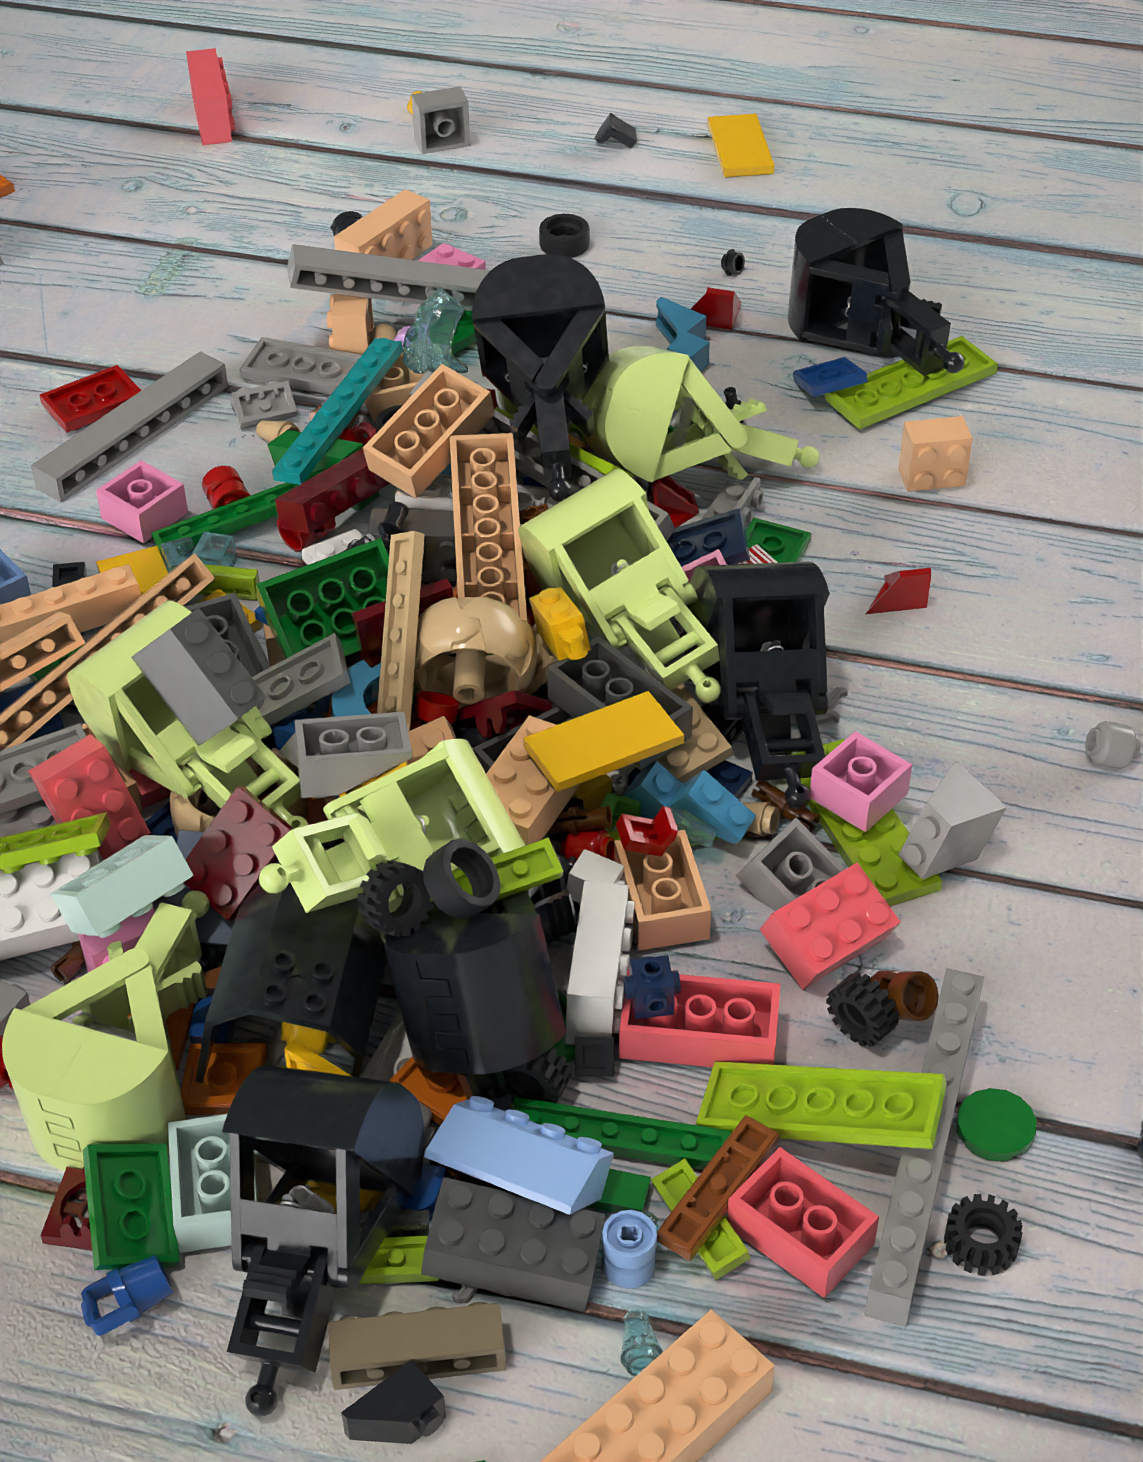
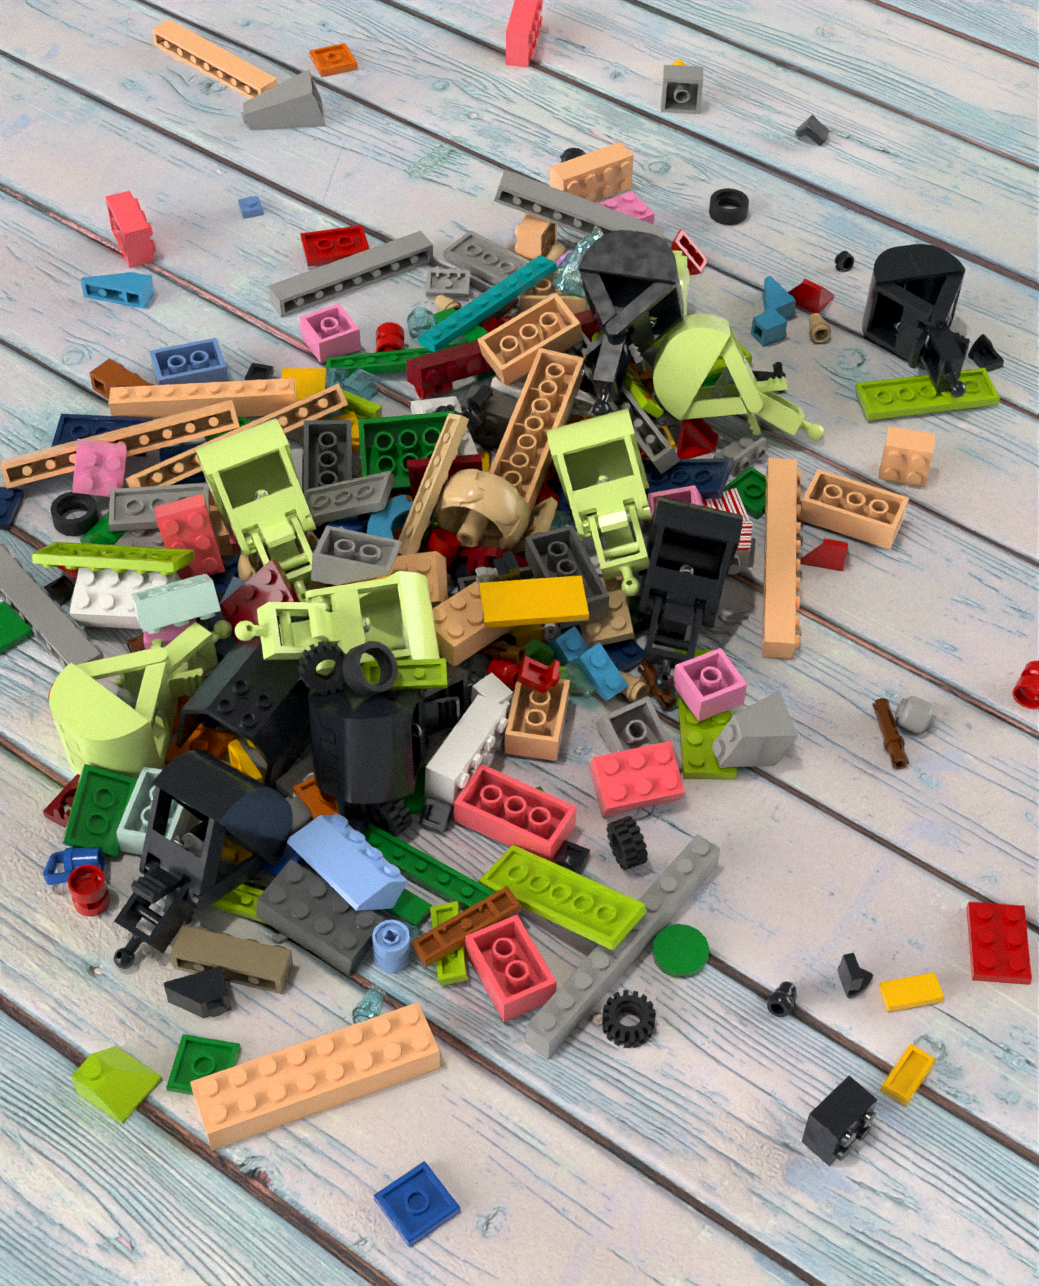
camera: 20 degrees right, 5 degrees up
(165, 1321) = (89, 890): none -> red wheel
(198, 677) = (269, 478): slope -> none
(255, 461) = (419, 322): none -> clear light blue head
(545, 712) = (503, 570): none -> black piece
(560, 624) = (547, 509): yellow brick -> none
(651, 986) = (484, 780): dark blue brick -> none
(740, 145) = (903, 165): yellow tile -> none
(746, 342) = (818, 328): none -> tan cone
(795, 1050) = (572, 857): none -> black tile
(829, 376) = (865, 373): blue tile -> none
(855, 616) = (780, 559): none -> light nougat brick
(907, 530) = (853, 508): none -> light nougat brick
(912, 991) = (661, 842): reddish brown wheel -> none
(959, 324) = (985, 355): none -> black tile
(1103, 784) = (892, 740): none -> reddish brown pin

